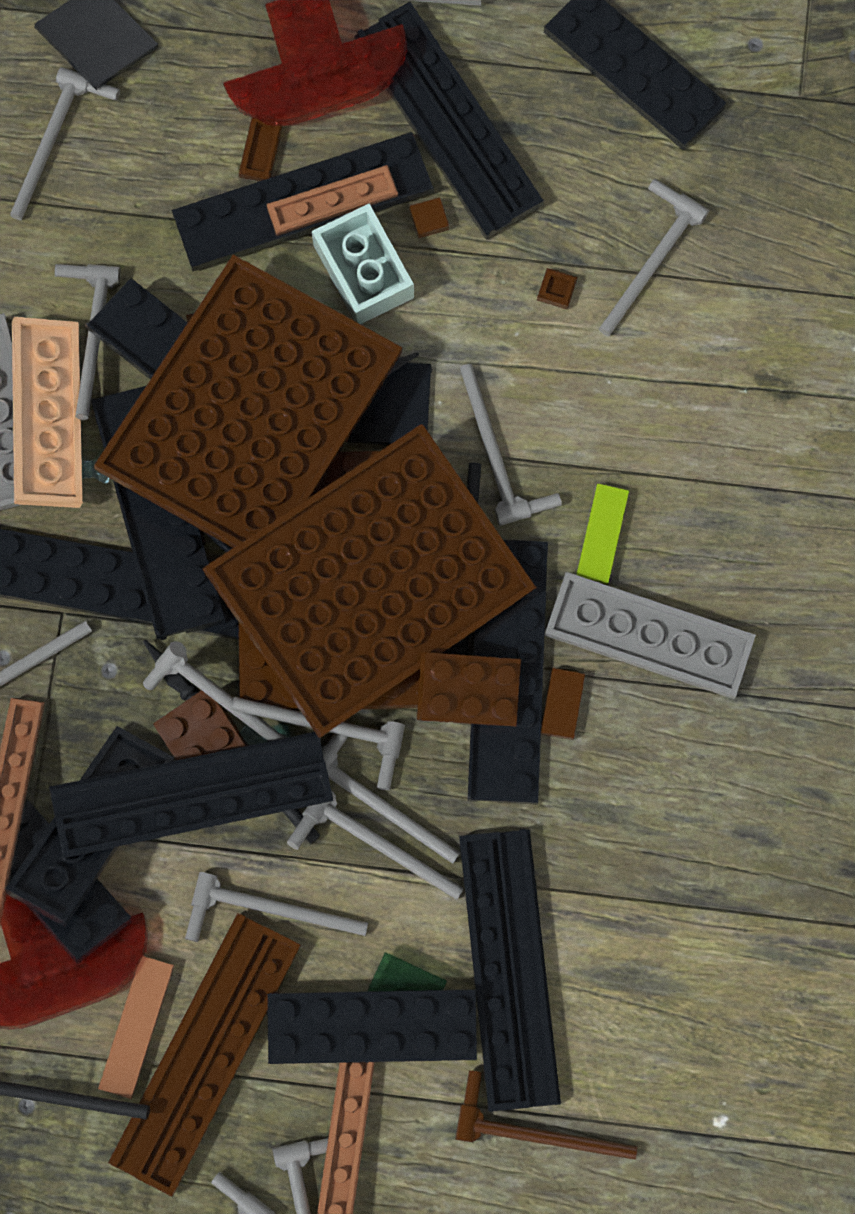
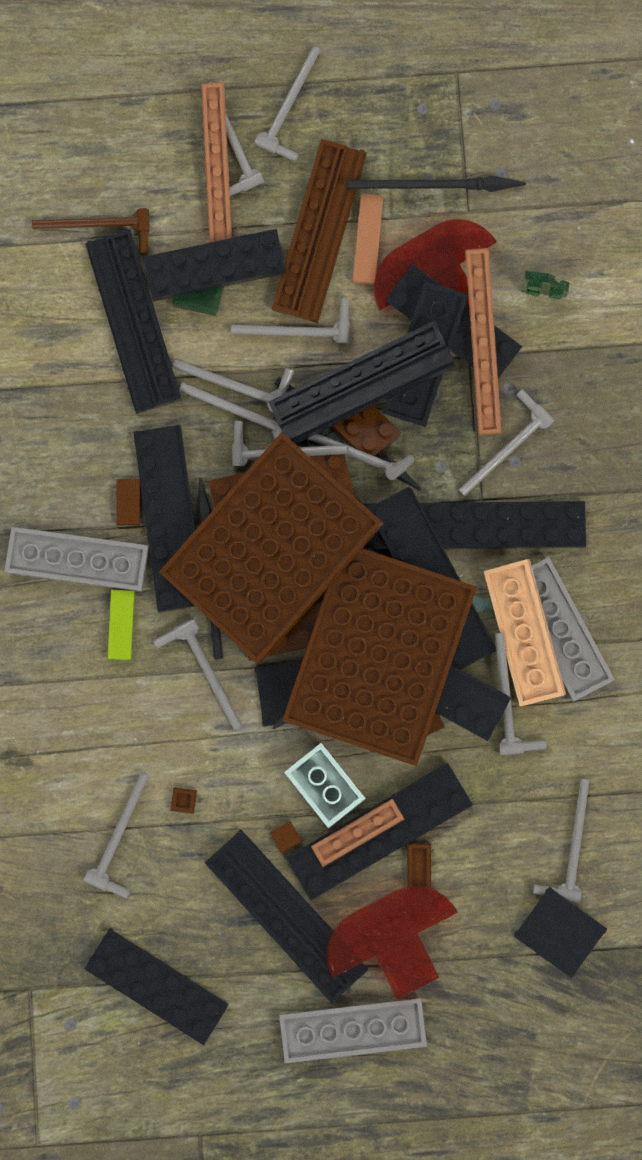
camera: 175 degrees right, 5 degrees up
(468, 689) = (191, 490): reddish brown plate -> none

